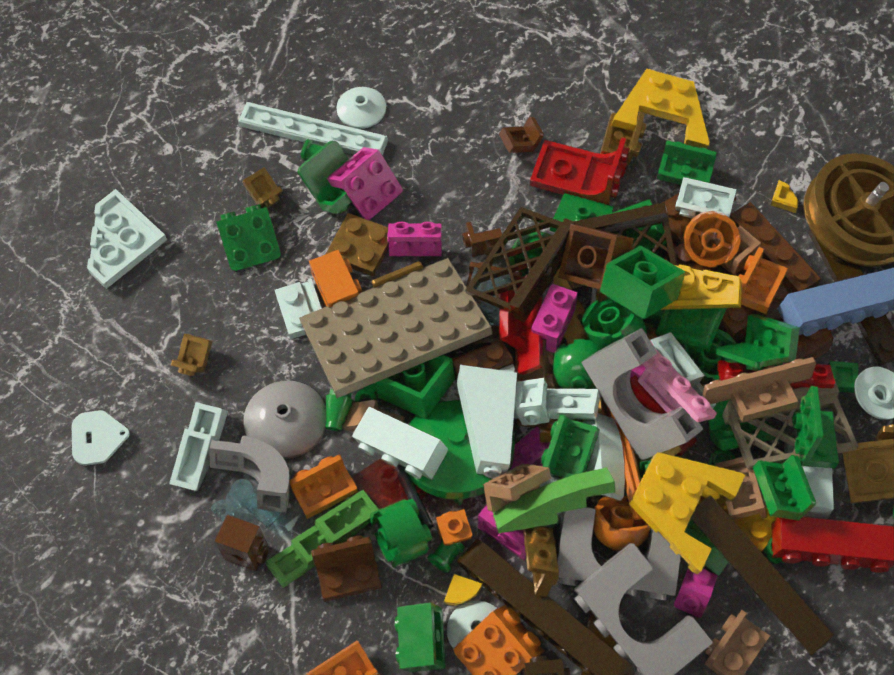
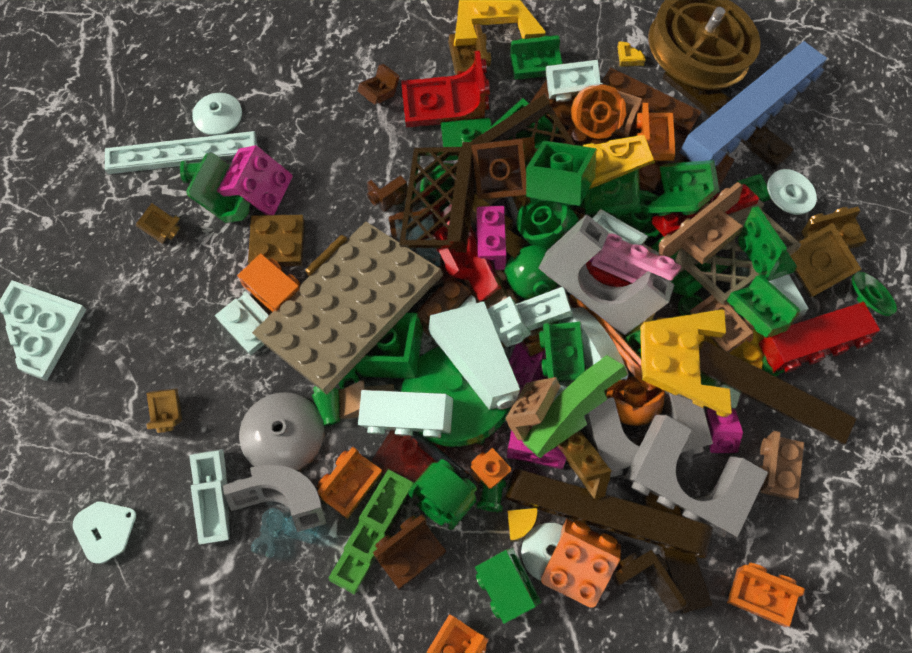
camera: 25 degrees left, 5 degrees up
(242, 543) = (298, 572): reddish brown brick -> none
(248, 237) = (166, 276): green bracket -> none
(415, 239) = (326, 215): dark pink bracket -> none

